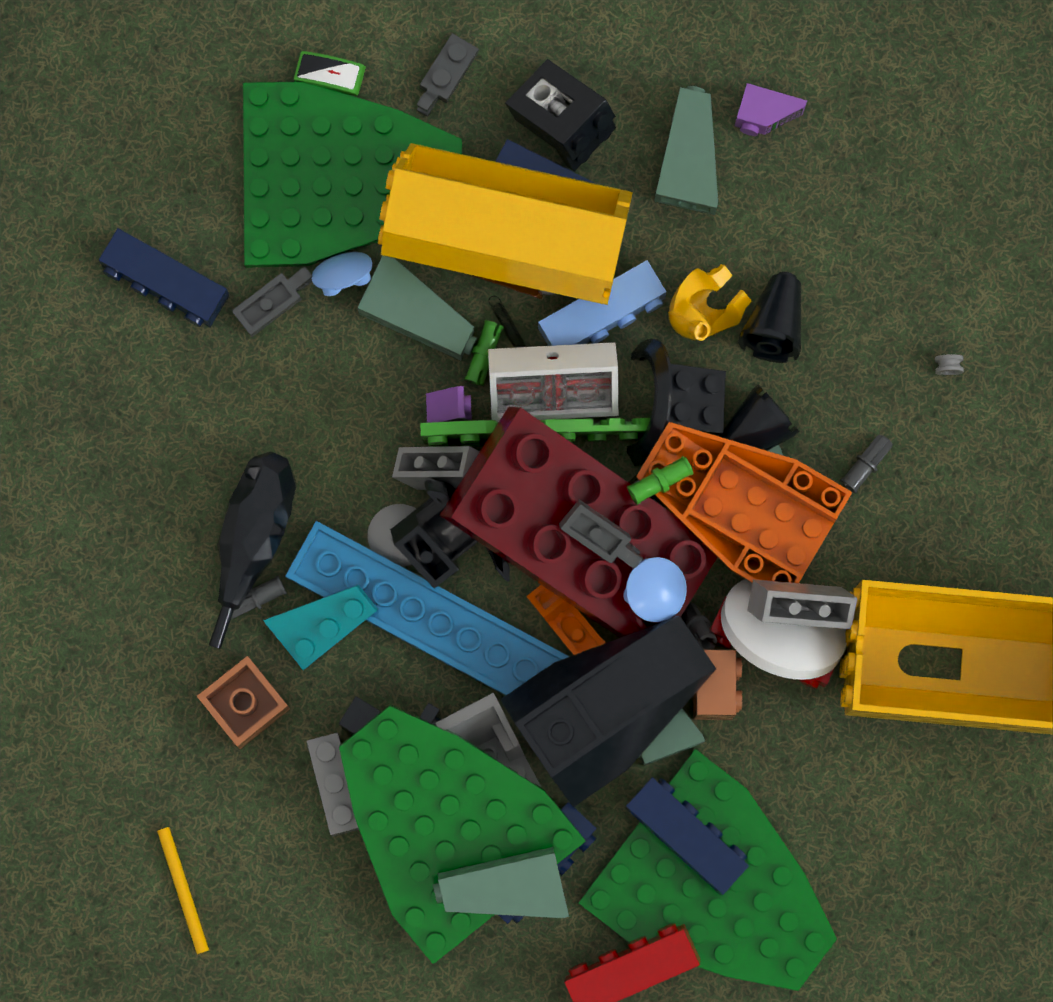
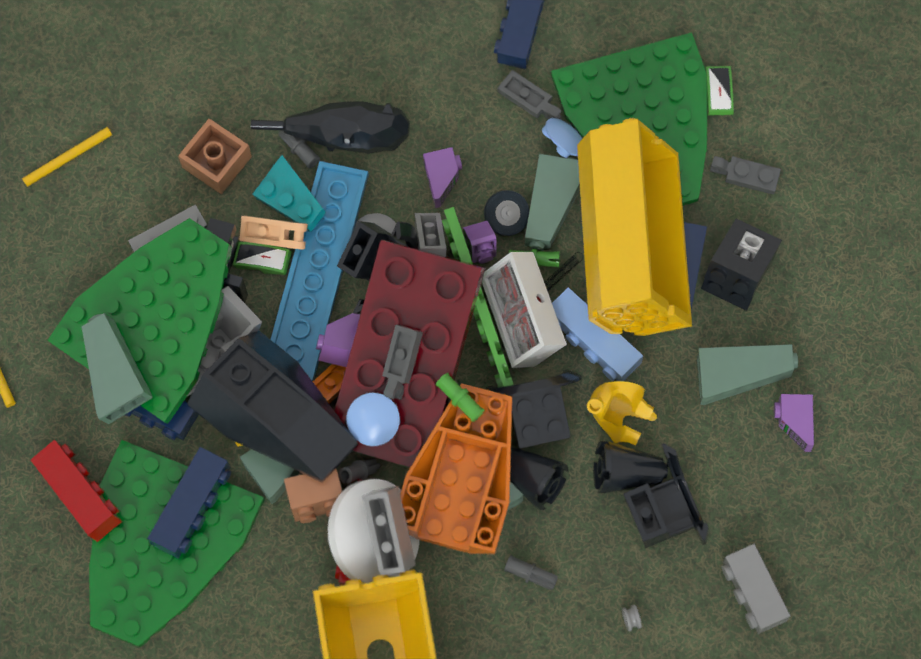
camera: 80 degrees right, 10 degrees down
(344, 433) = (442, 173): none -> medium lavender slope
(366, 655) = (272, 232): none -> light nougat plate
(391, 676) = (262, 257): none -> slope
(418, 368) = (506, 212): none -> black wheel
(532, 608) = (338, 340): none -> medium lavender slope
(837, 287) = (666, 508): none -> black piece
(952, 218) = (755, 589): none -> light grey brick

